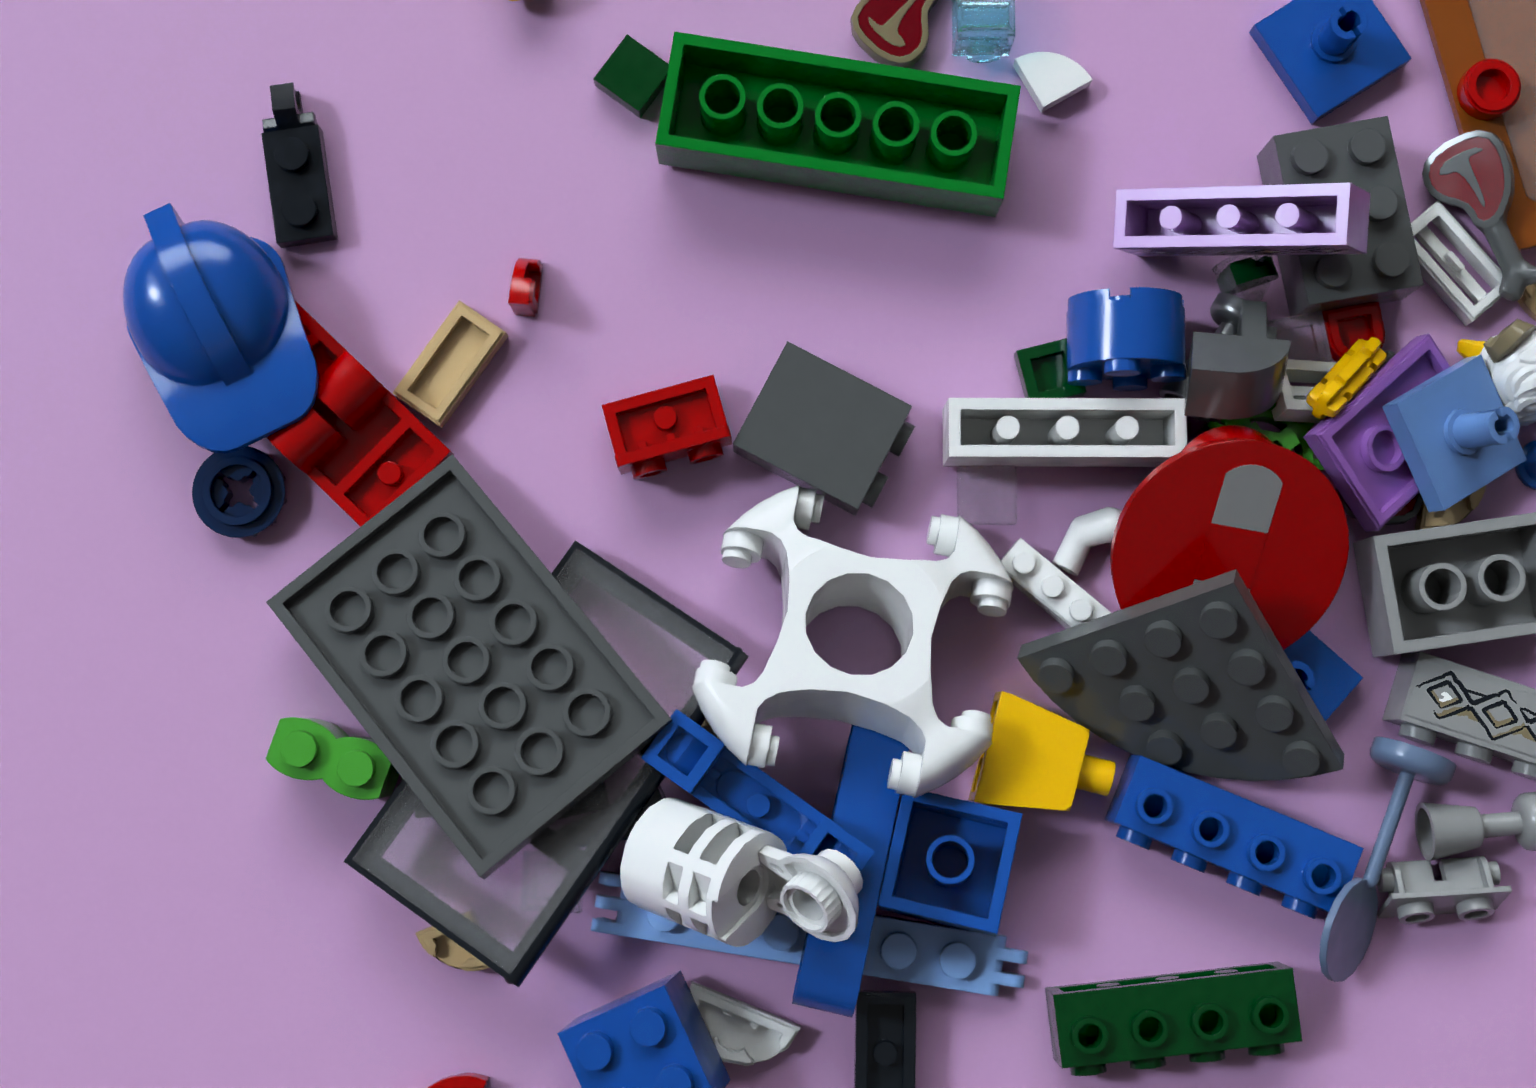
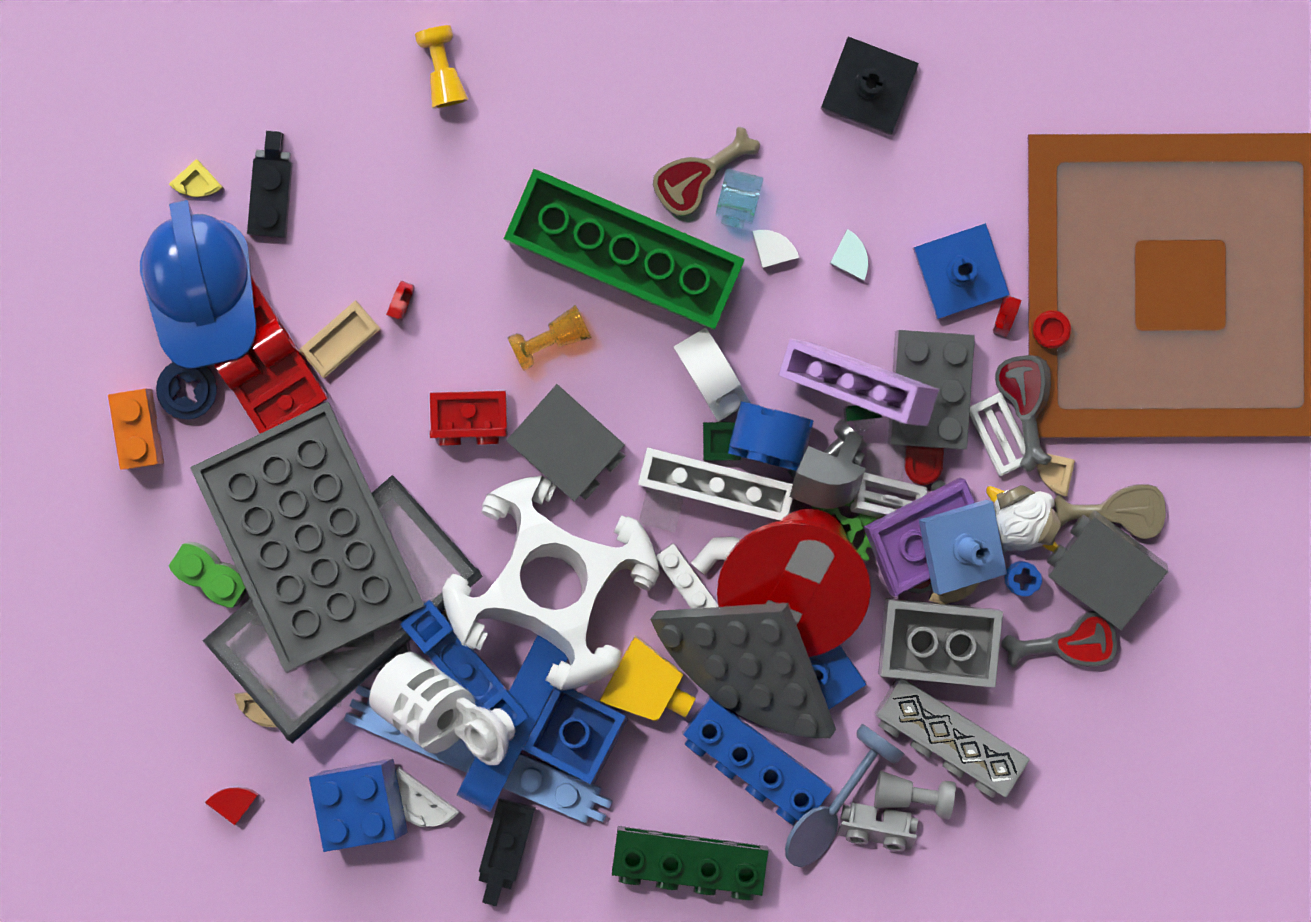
camera: 15 degrees right, 5 degrees up
(173, 567) = (135, 429): none -> orange brick
(187, 189) = (196, 181): none -> light yellow tile
(632, 76) = (503, 178): dark green tile -> none
(777, 267) = (563, 331): none -> clear yellow piece
(1013, 270) = (711, 374): none -> white brick
(1166, 62) = (851, 256): none -> light aqua tile
(1346, 378) = (902, 495): yellow axle -> none
(1416, 87) = (1006, 315): none -> red tile

